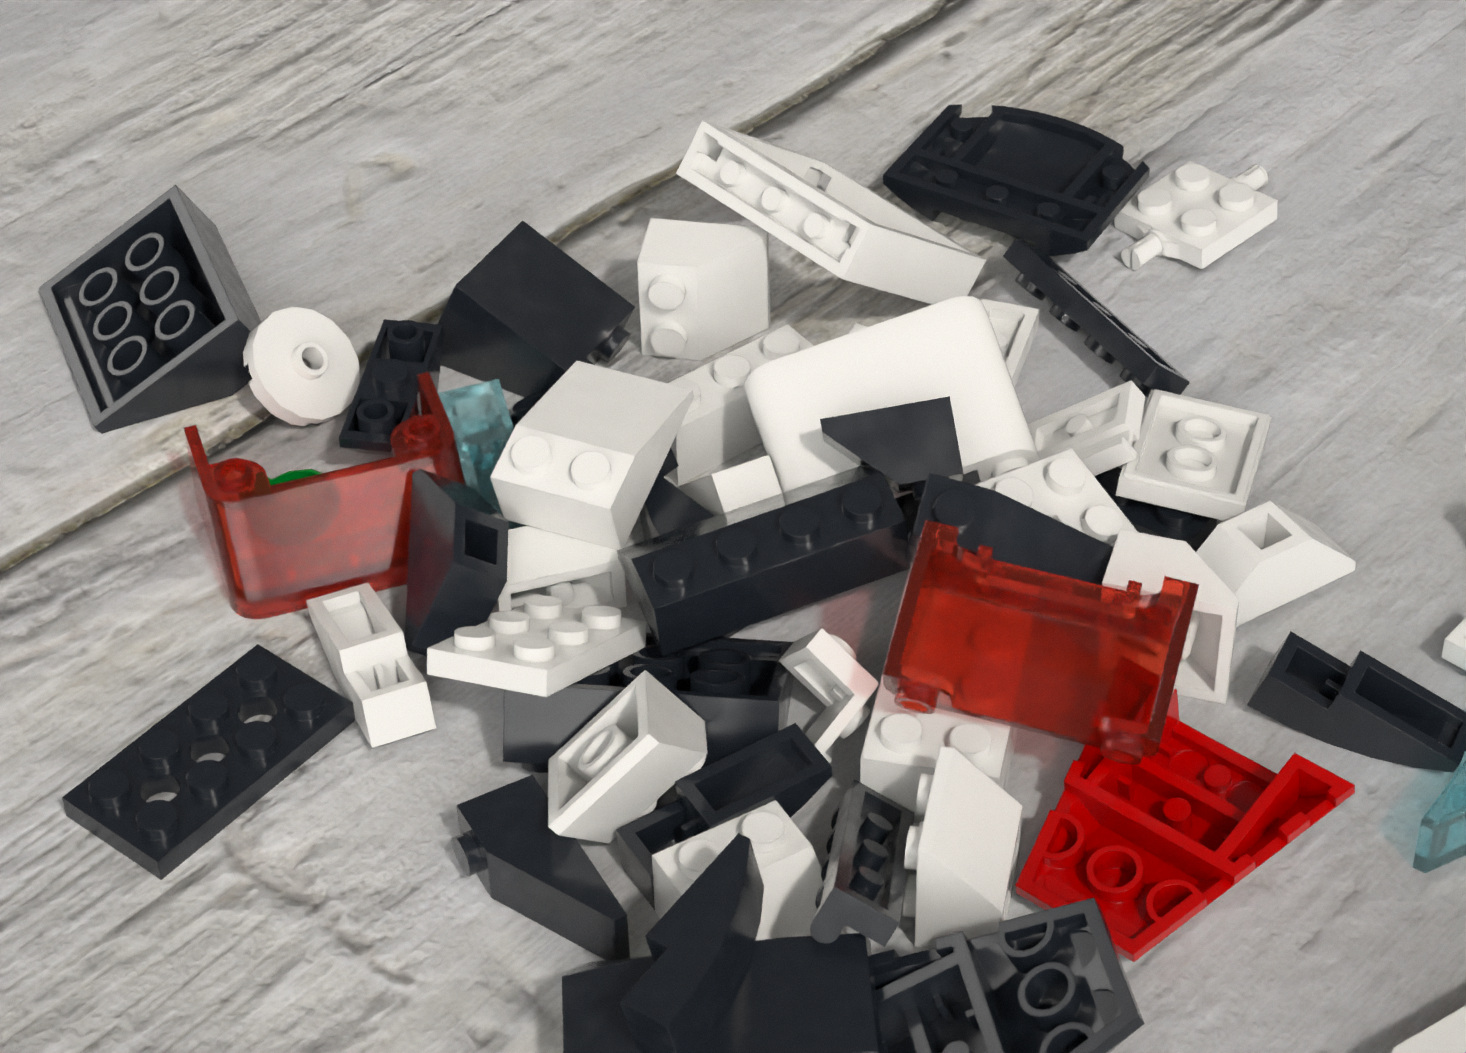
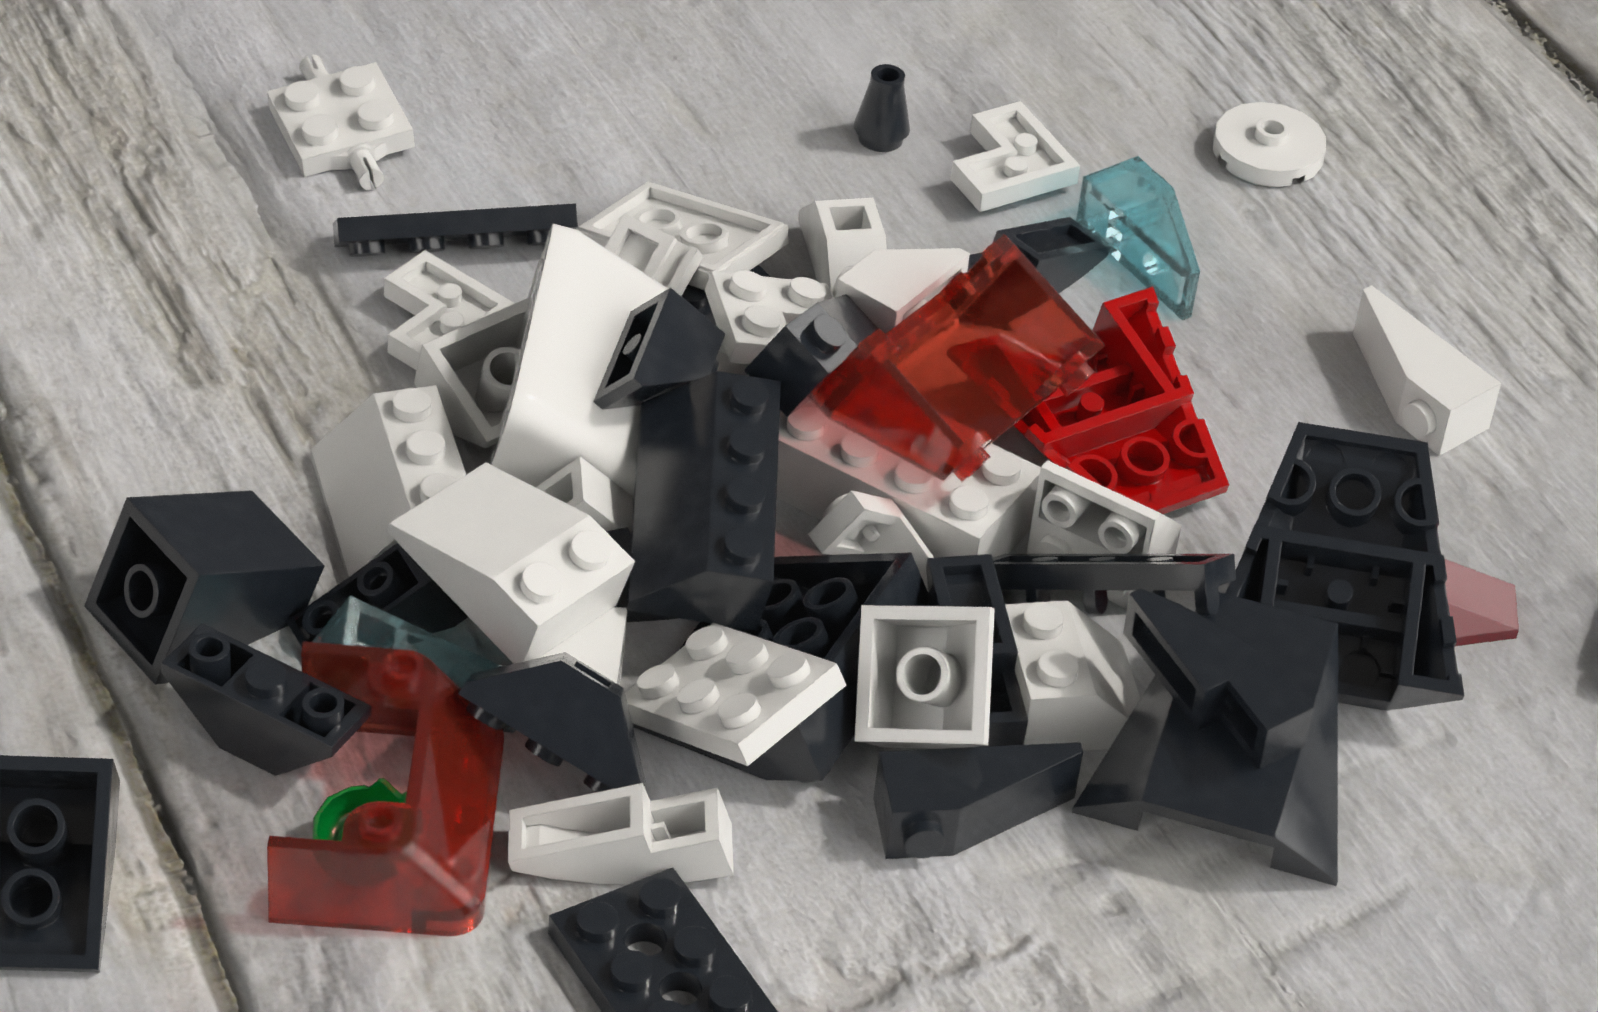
camera: 75 degrees left, 0 degrees up
(282, 378) = (162, 755): white plate -> none
(701, 287) = (255, 433): white slope -> none
(840, 229) = (256, 305): white window -> none
(1018, 176) = (224, 190): black slope -> none

